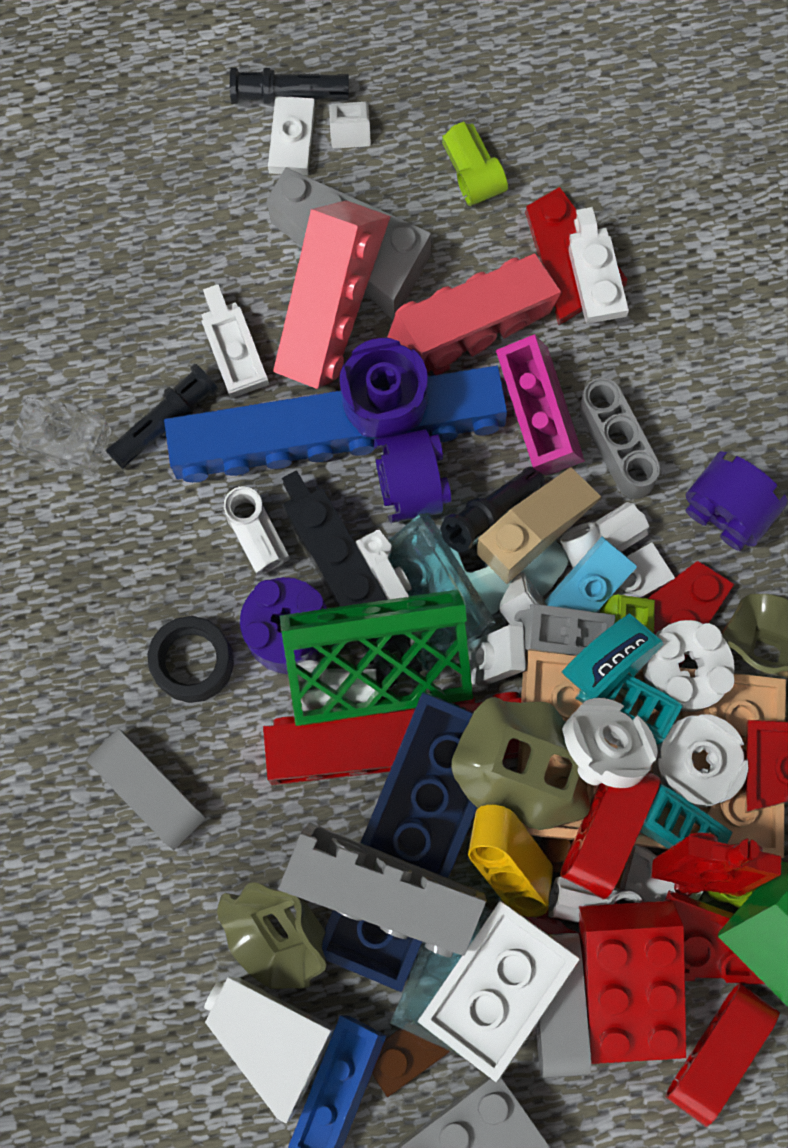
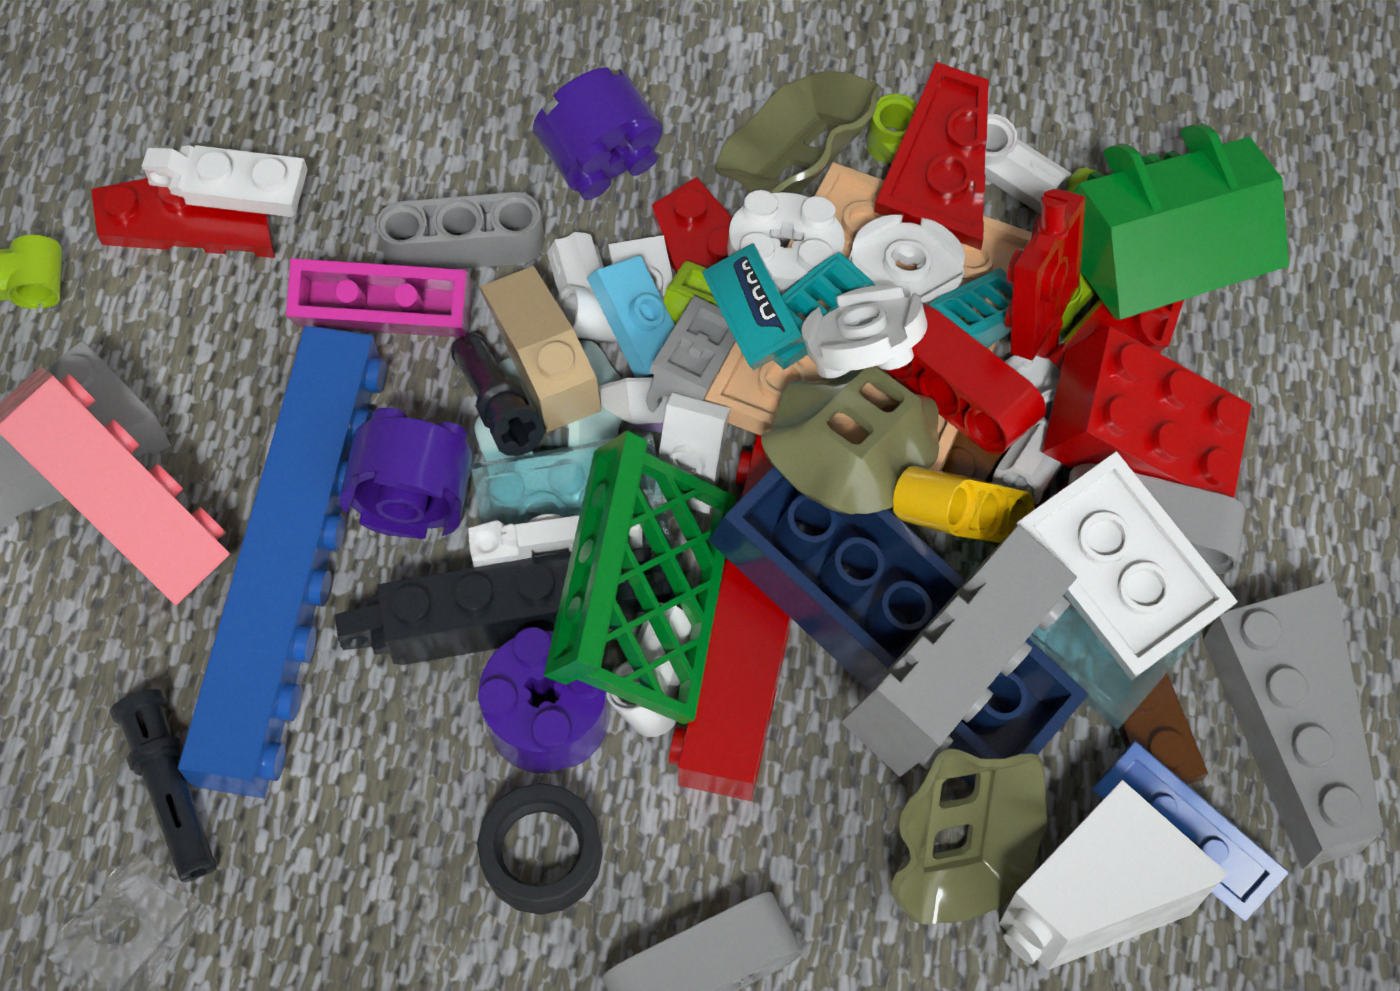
camera: 75 degrees left, 10 degrees down
(232, 345) = (102, 655): white hinge -> none
(256, 532) = (397, 704): white piece -> none
(389, 365) = (280, 452): dark purple brick -> none
(475, 312) = (219, 348): coral wedge -> none
(724, 1056) = (1240, 358): red beam -> none

